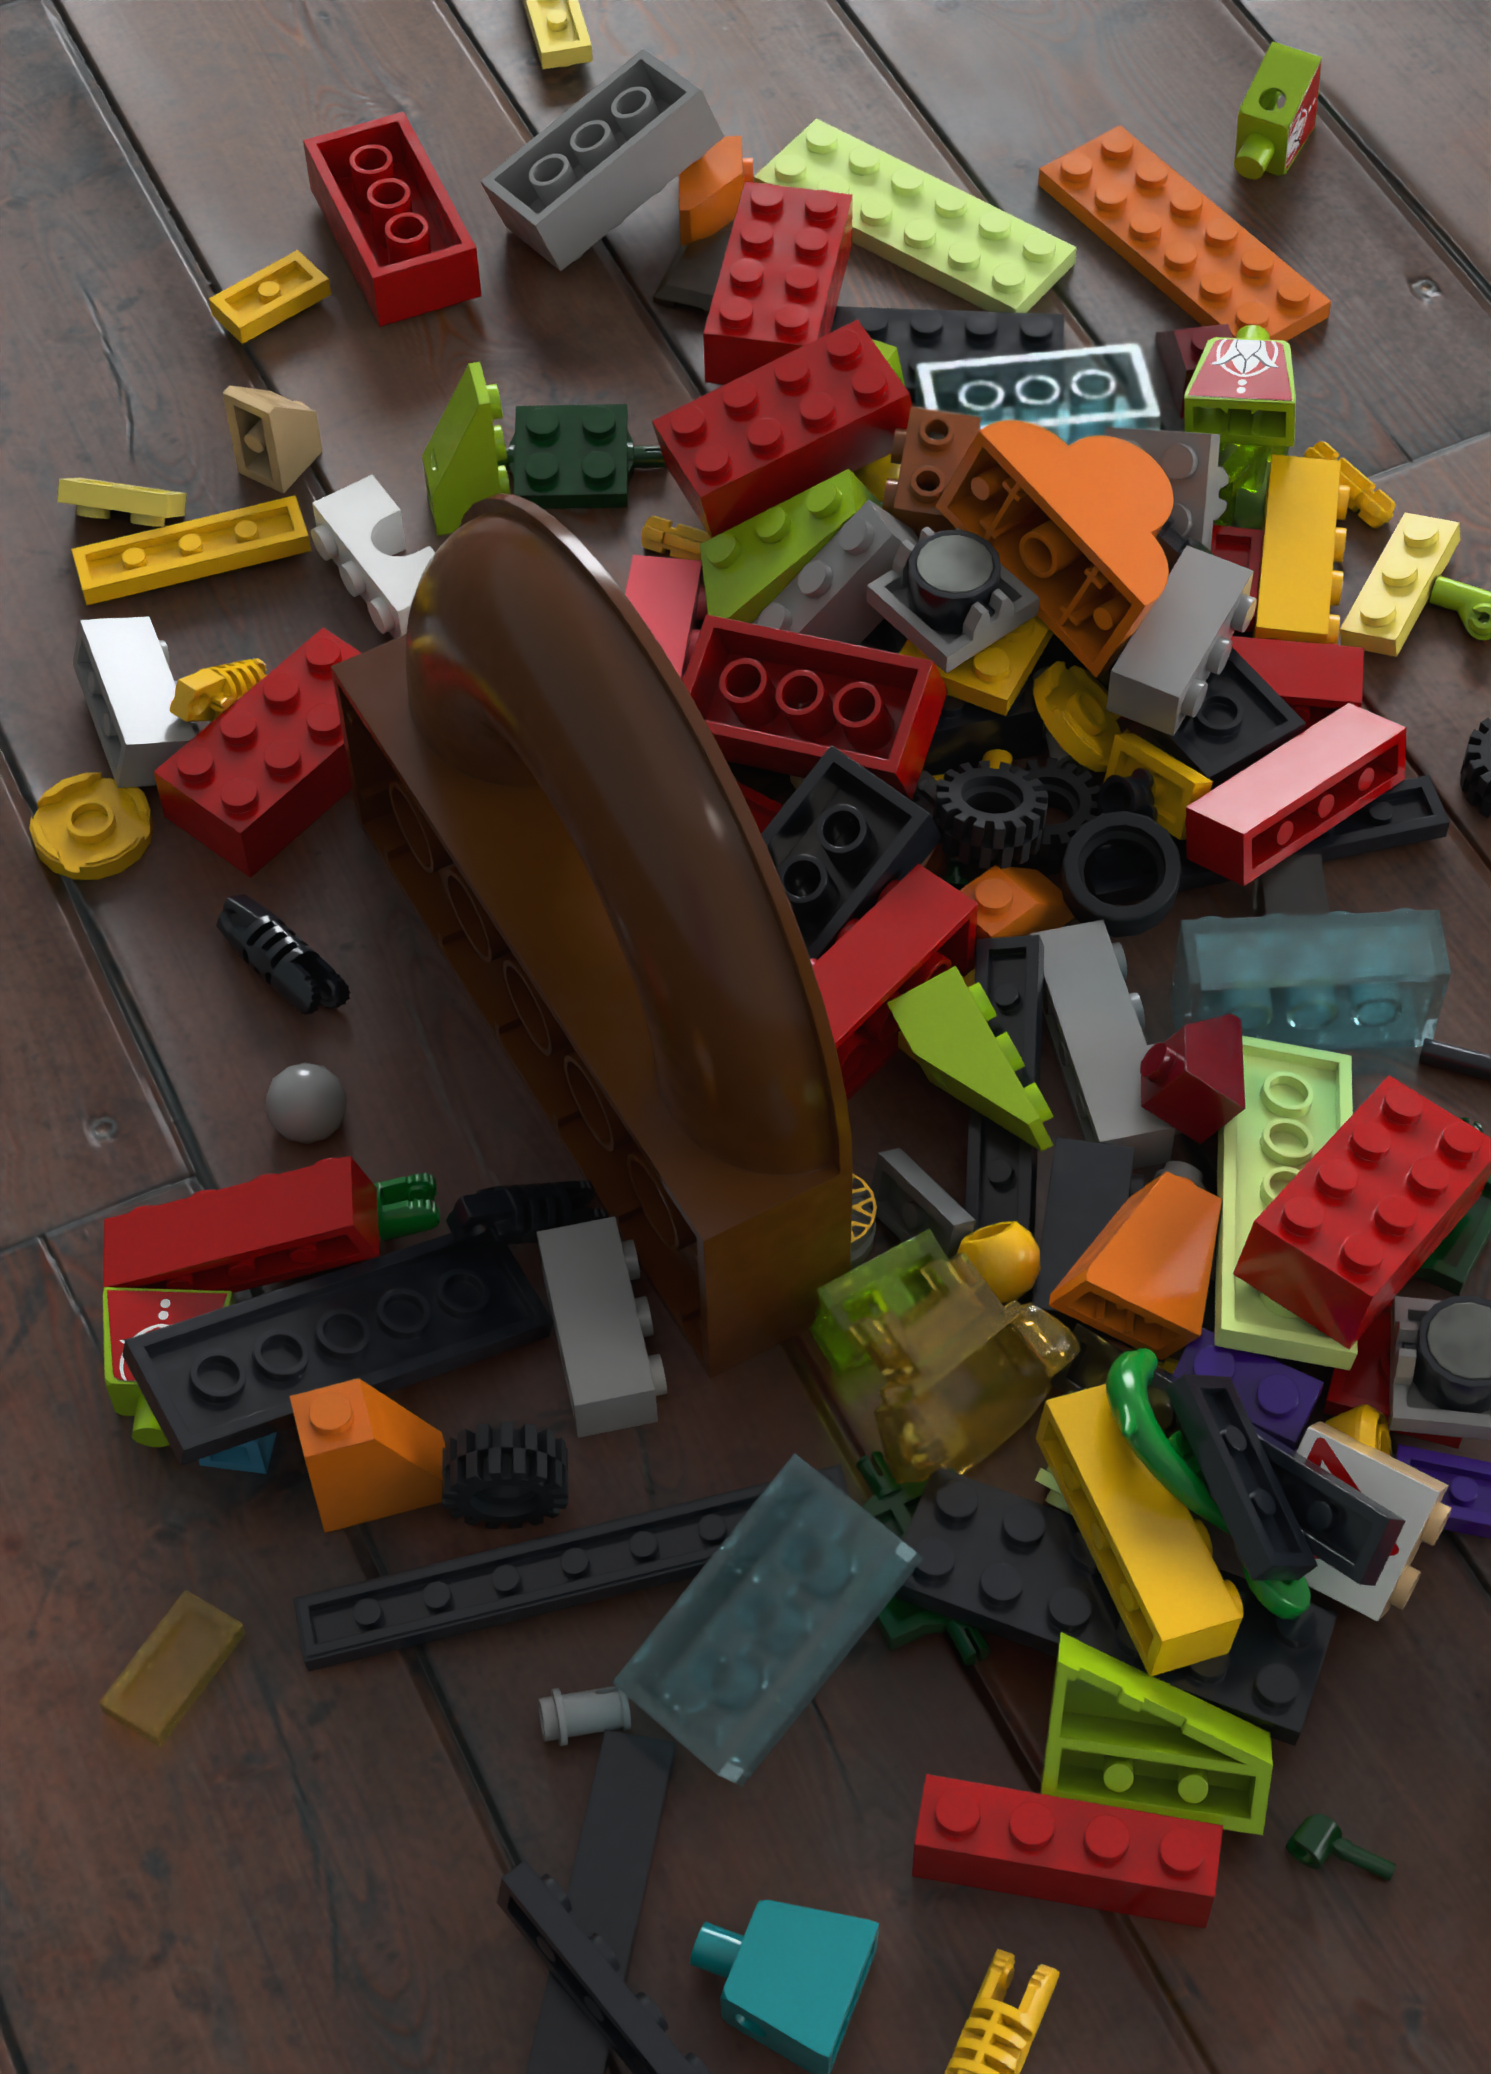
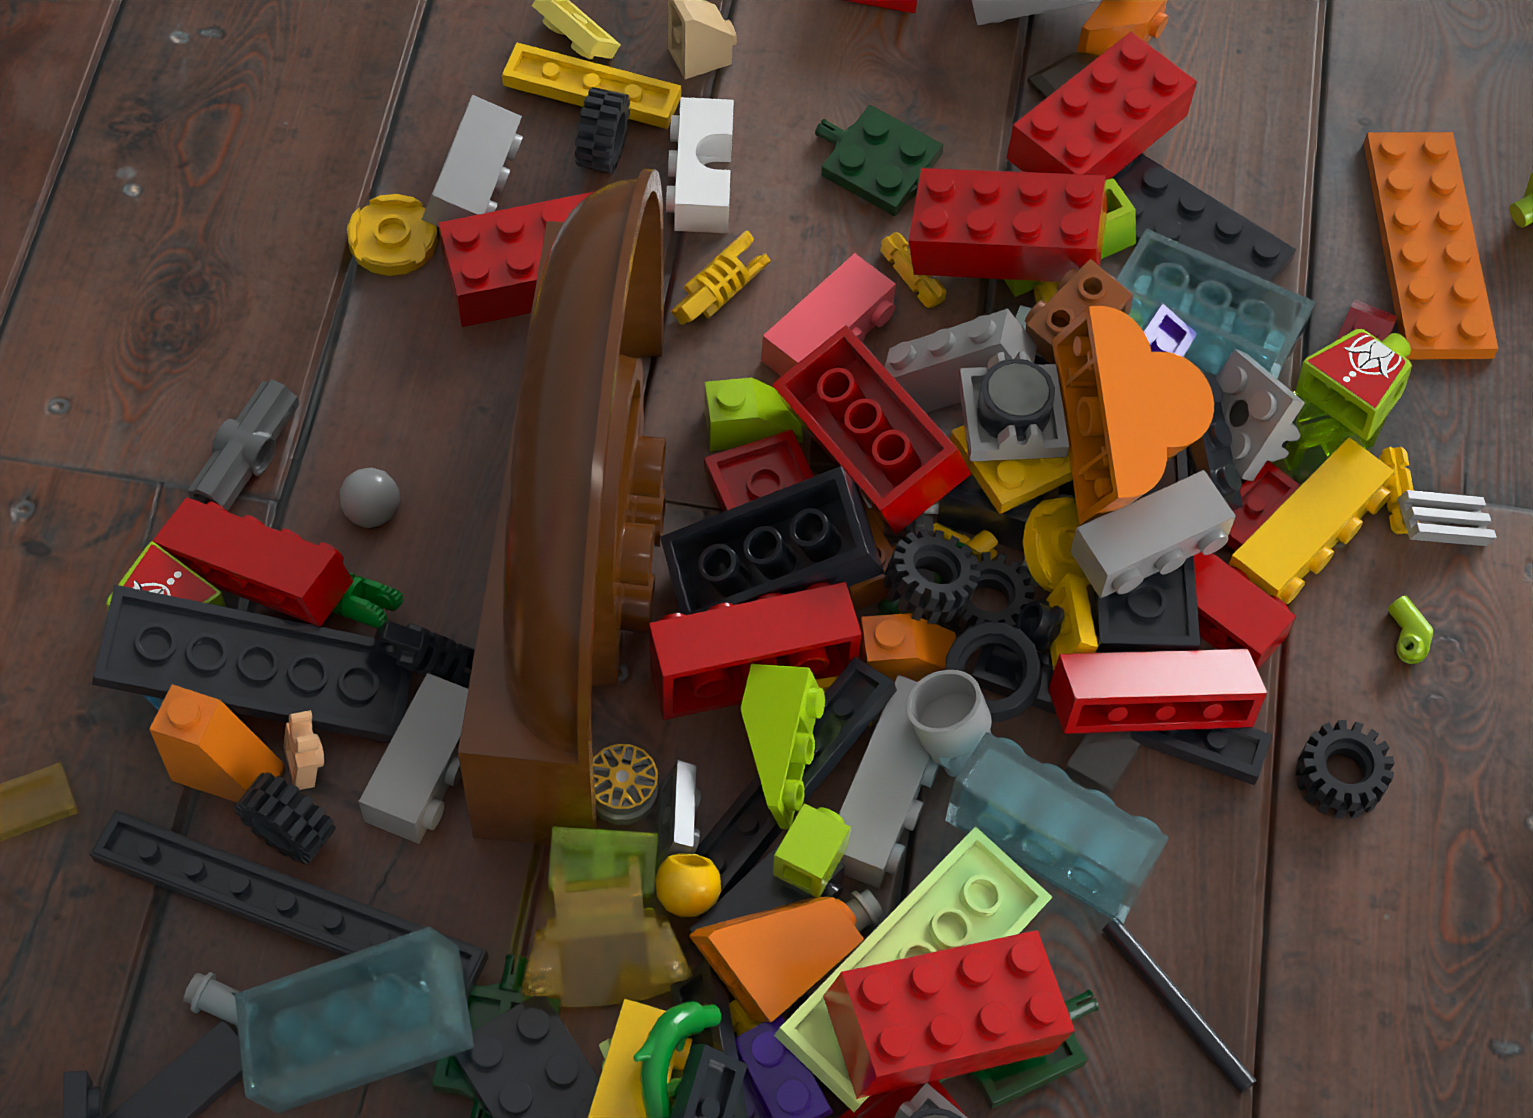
camera: 30 degrees right, 5 degrees up
(114, 1130) = (244, 445): none -> dark grey piece
(215, 689) = (521, 189): yellow hinge -> none
(252, 582) = (602, 130): none -> black tyre
(280, 956) = (430, 391): black hinge -> none
(456, 1392) = (302, 750): none -> light nougat plate
(465, 451) = (797, 125): lime slope -> none
(764, 554) = (934, 301): lime wedge -> none
(926, 221) = (1253, 124): yellowish green plate -> none
(1099, 1146) = (812, 849): none -> lime brick
(1126, 934) = (948, 717): none -> light grey piece
(1196, 1077) = (920, 843): dark red slope -> none
(1400, 584) = (1374, 585): light yellow plate -> none
(1410, 475) = (1442, 511): none -> light grey tile

